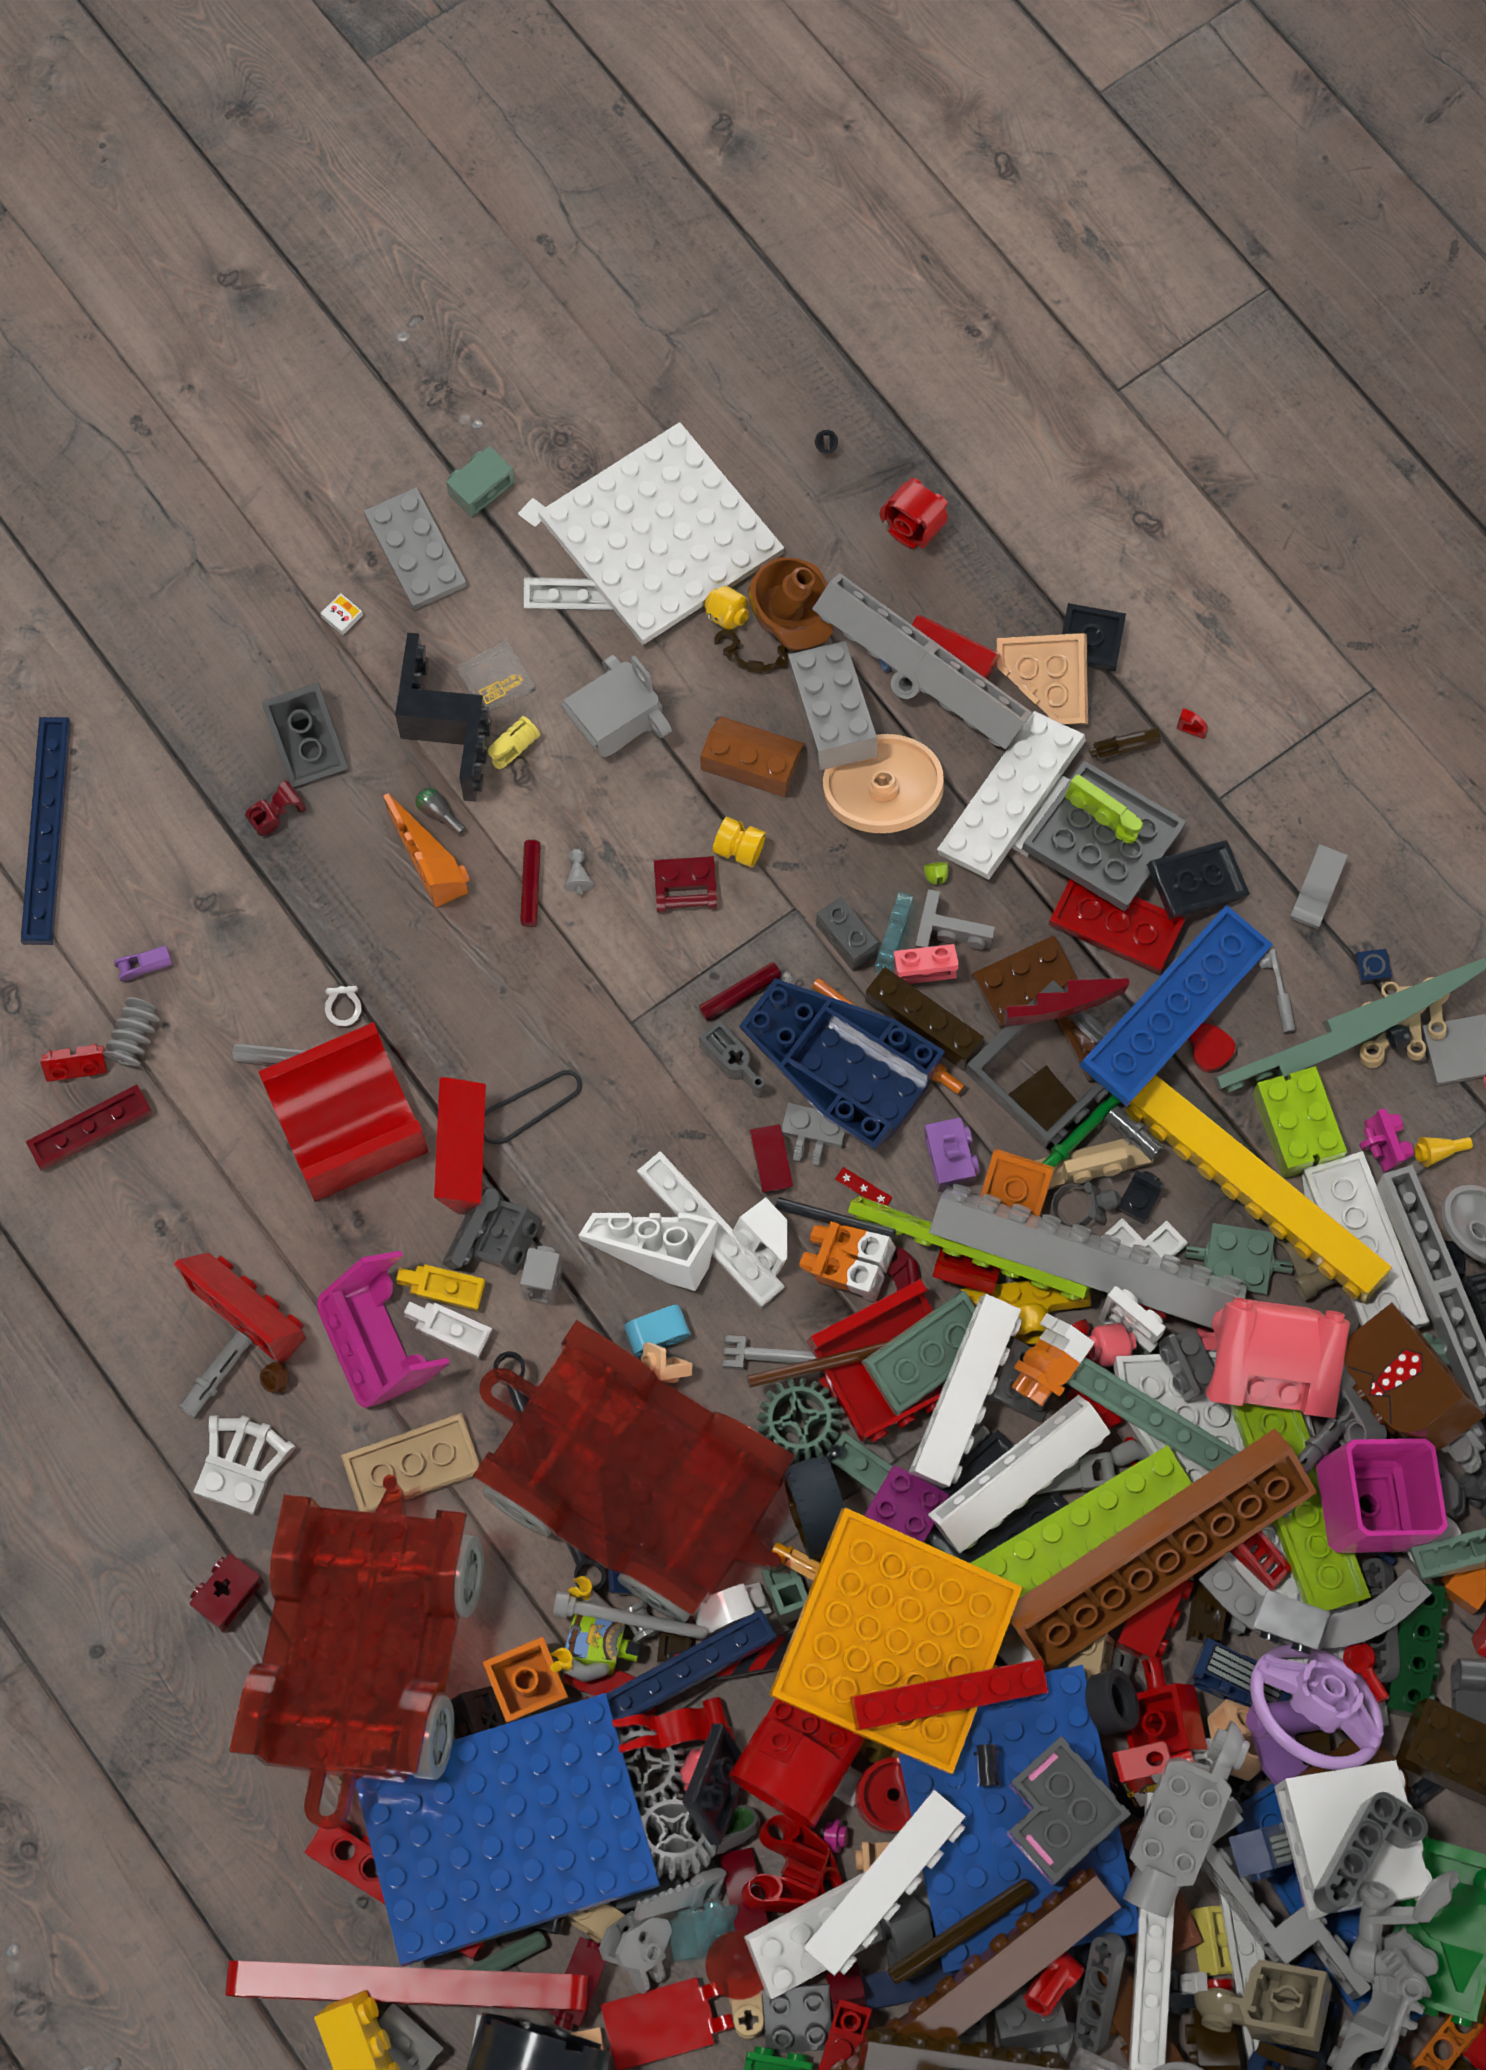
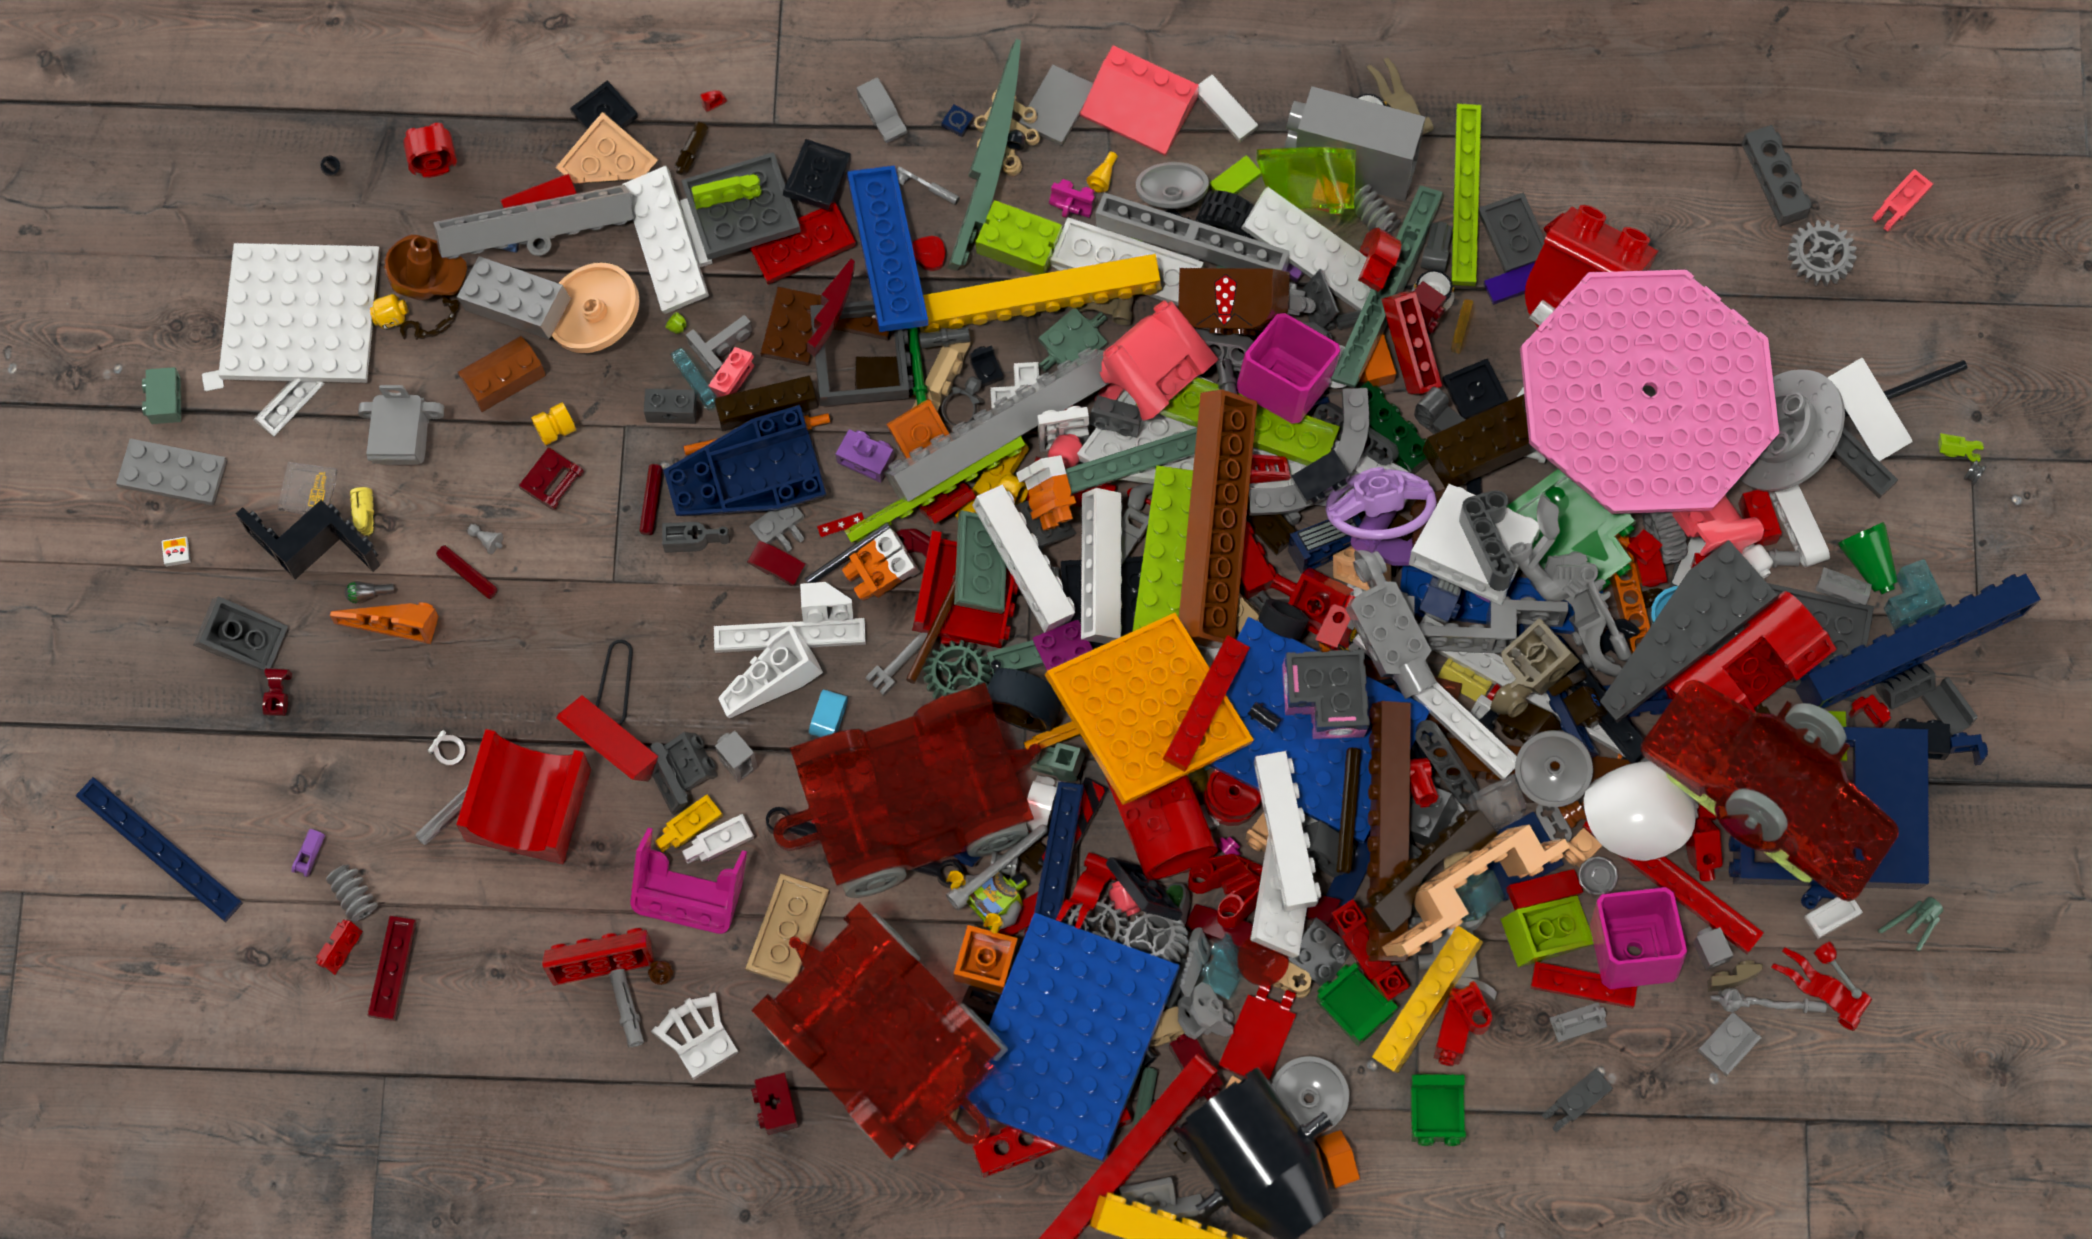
camera: 50 degrees left, 0 degrees up
(666, 1368) = (861, 721): light nougat bracket -> none
(1361, 1659) = (1372, 459): red plate -> none

